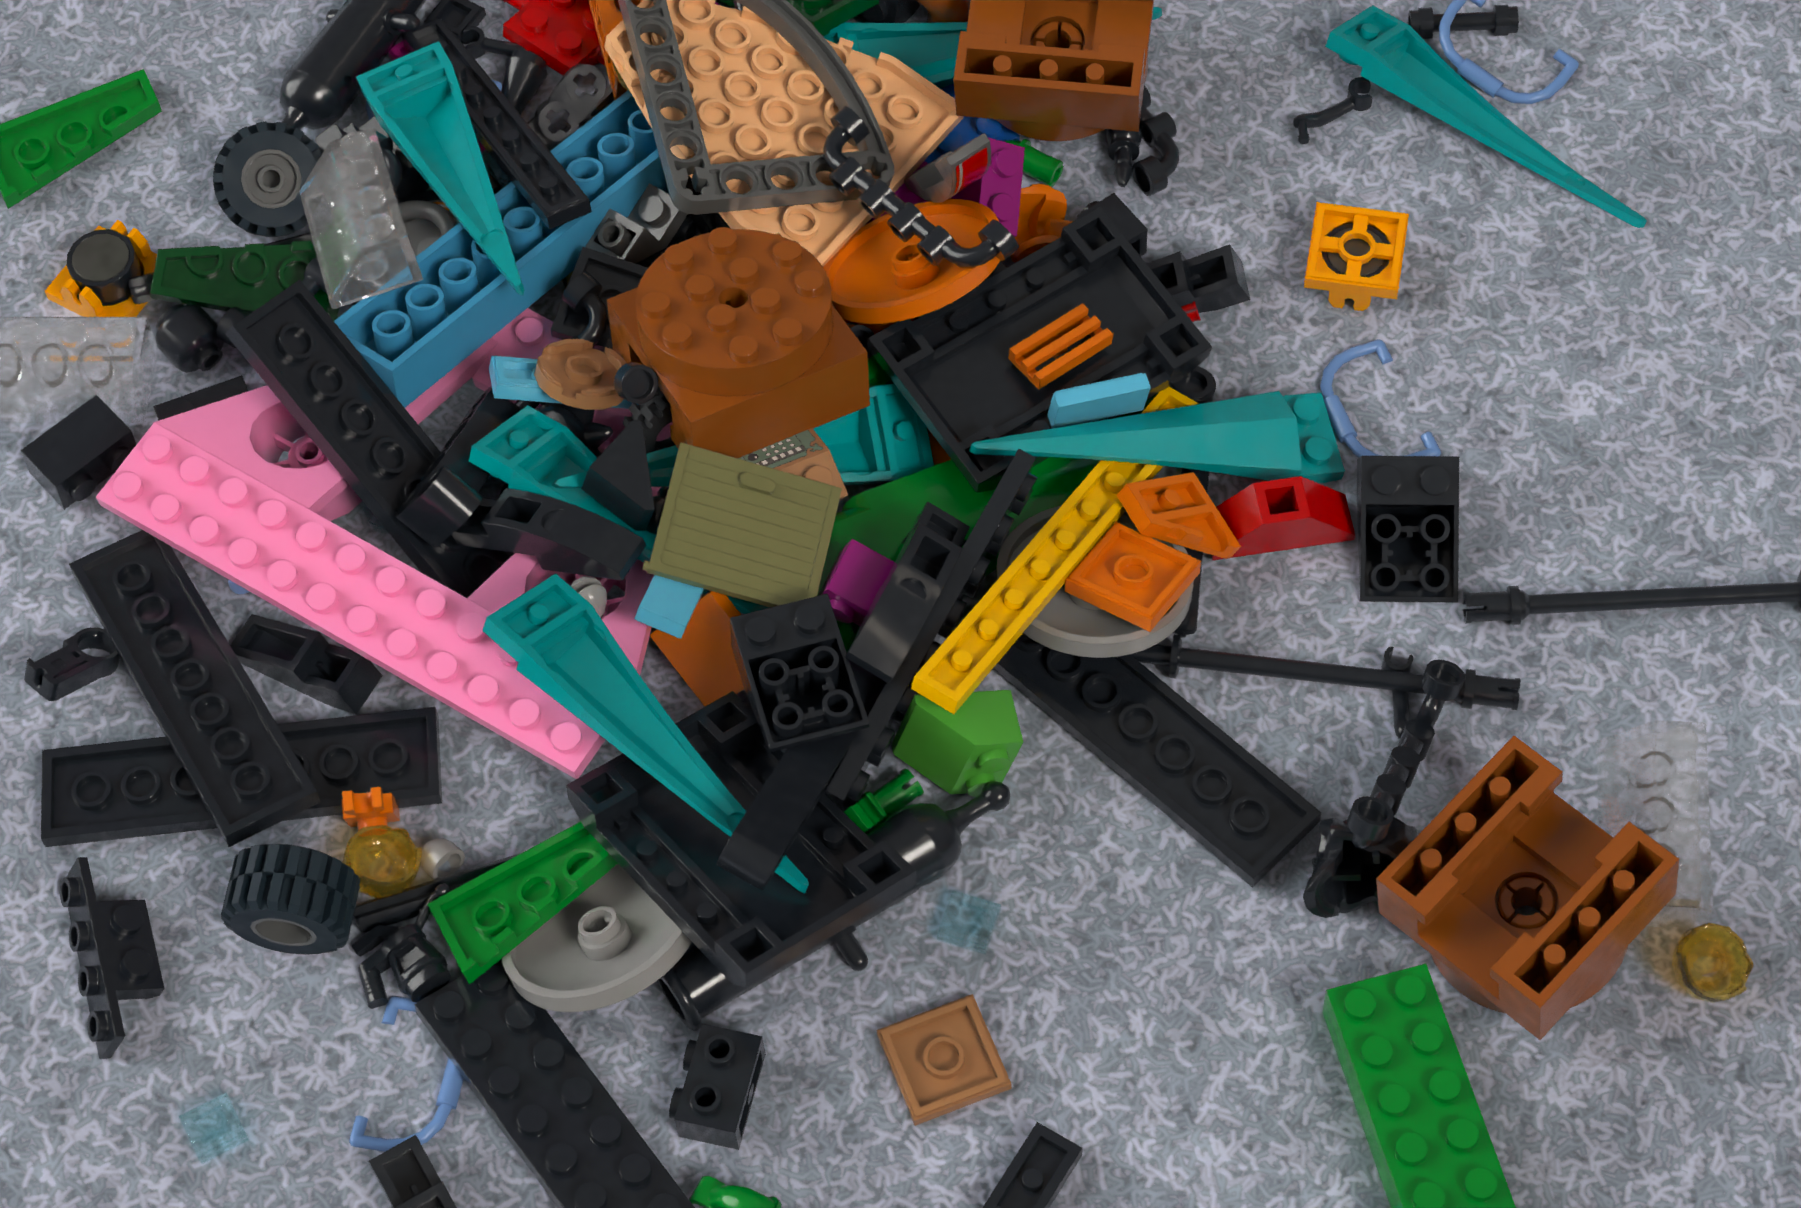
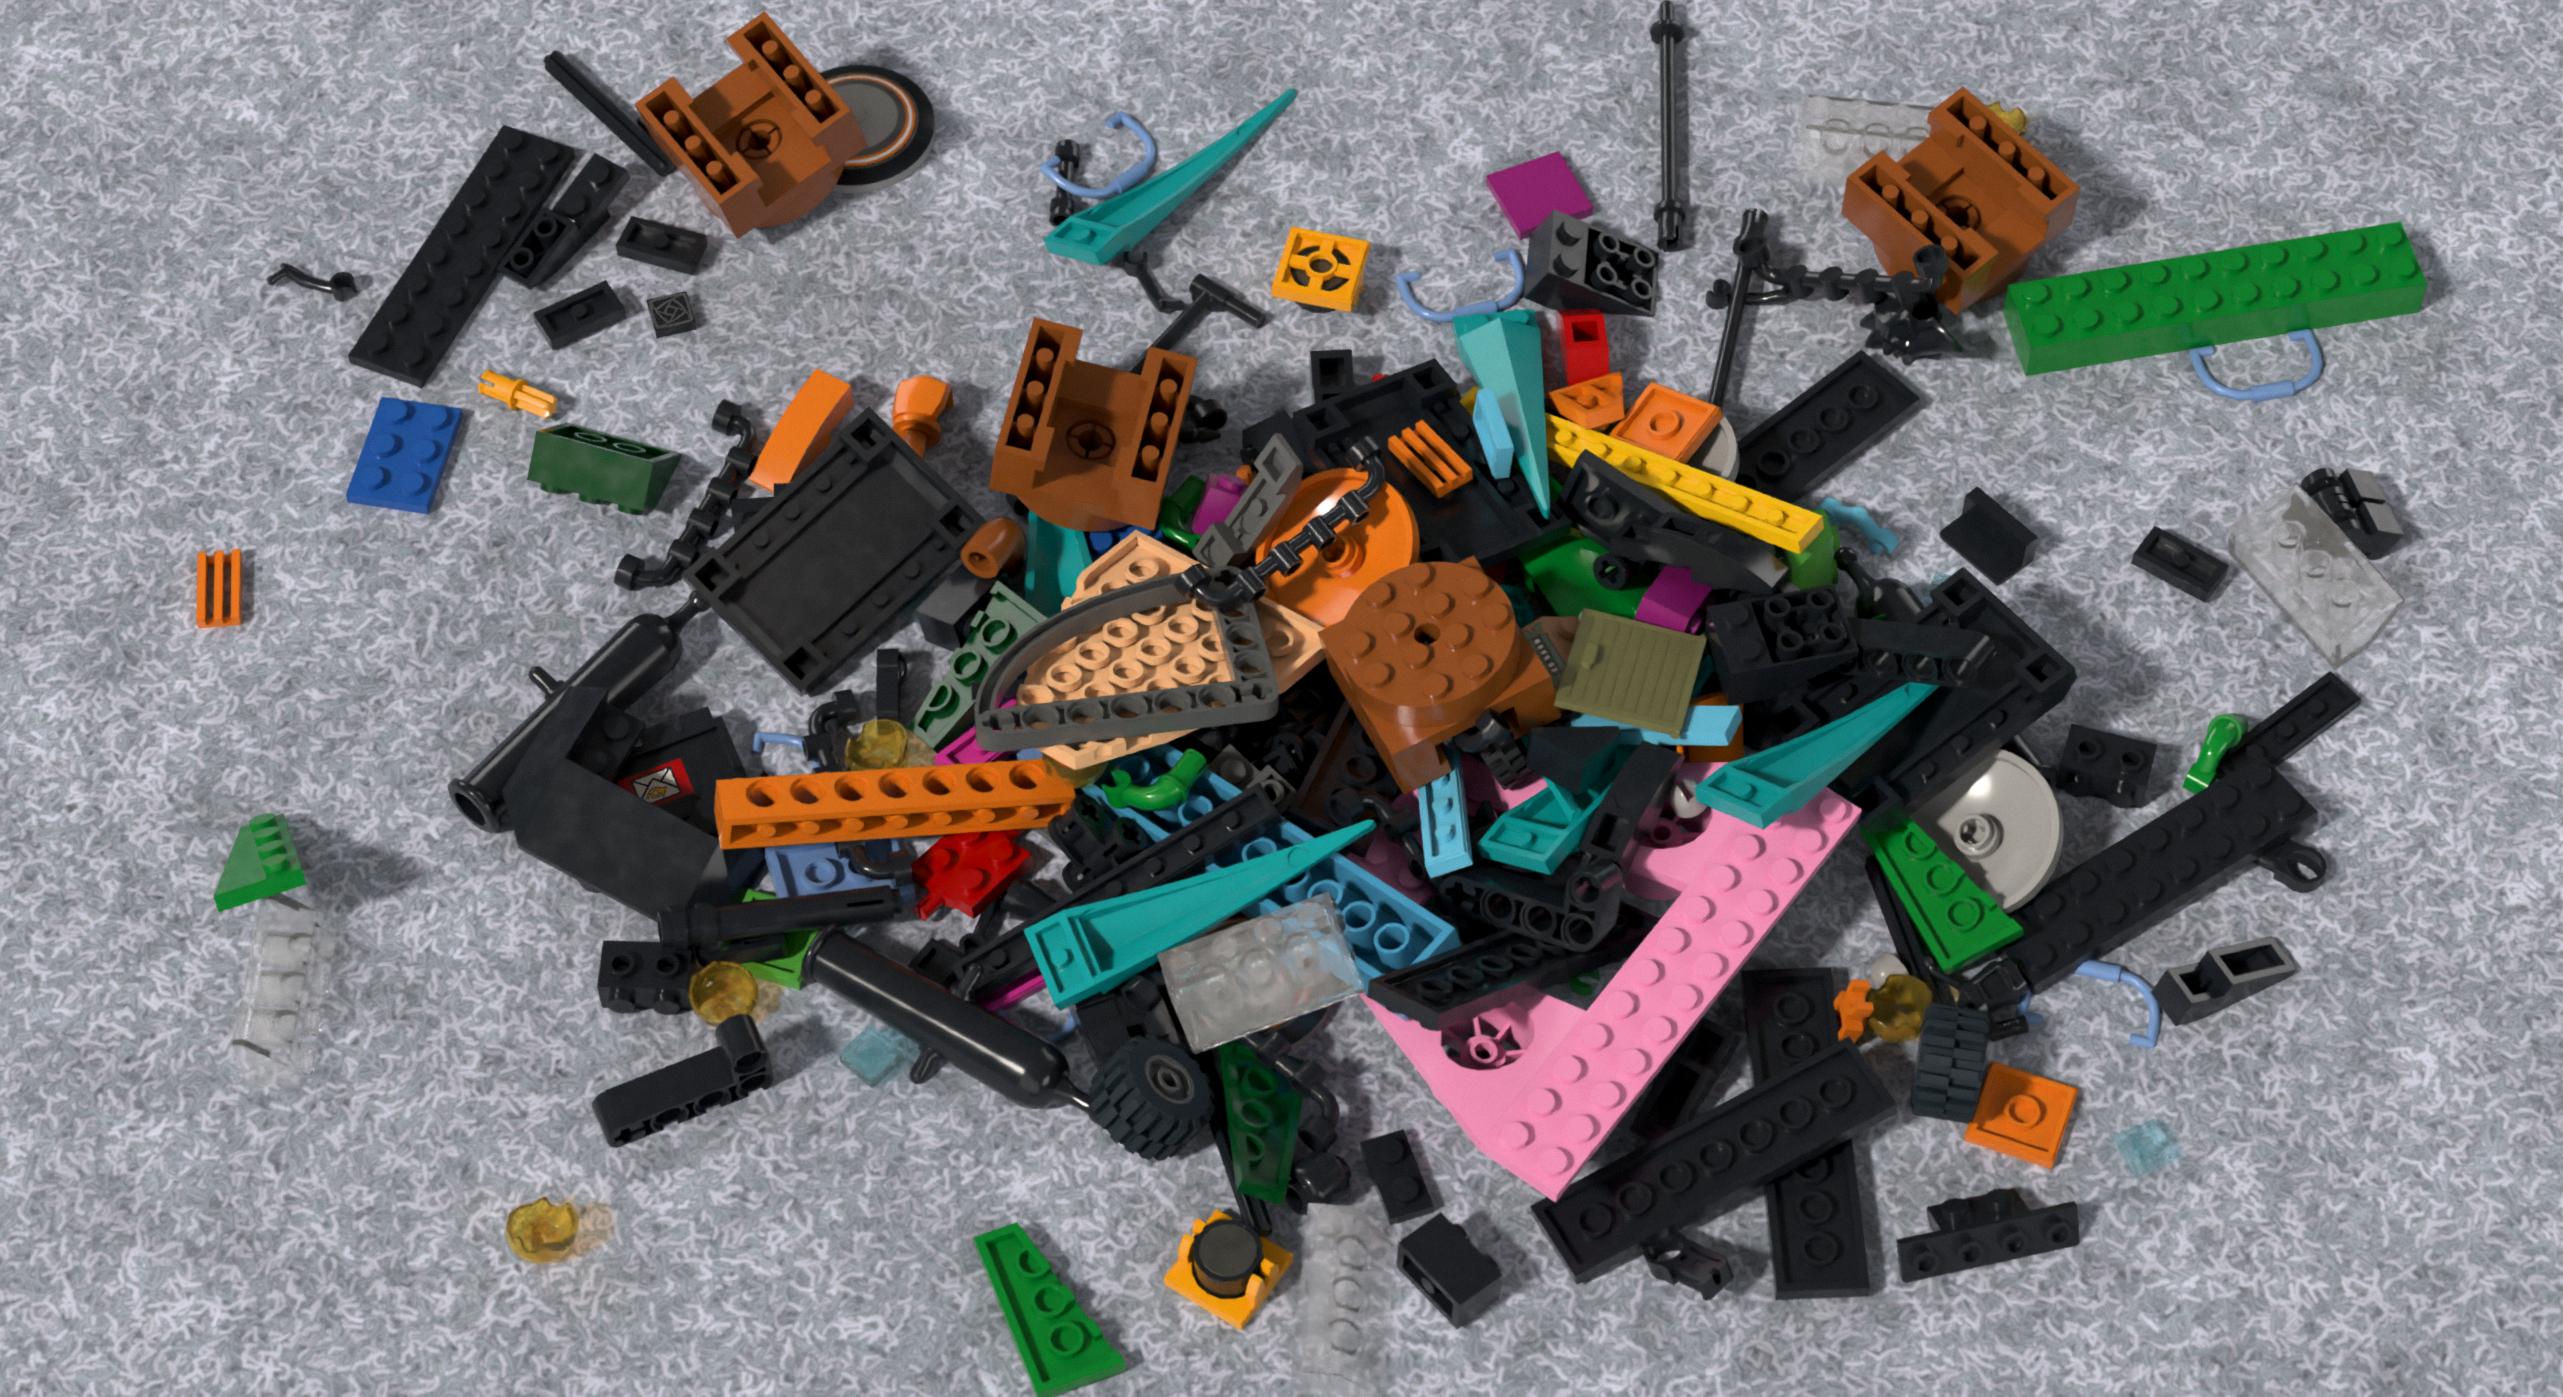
camera: 90 degrees left, 5 degrees down
(261, 999) = (2021, 1115): none -> orange tile
(579, 374) = (1446, 799): medium nougat tile -> none
(599, 134) = (1165, 793): none -> green piece
(943, 1059) = (2074, 618): medium nougat tile -> none
(1053, 963) = (1990, 538): none -> black panel
(1058, 807) = (1877, 537): none -> medium azure arm
(1320, 165) = (1205, 296): none -> black bar
(1524, 473) = (1534, 189): none -> magenta tile

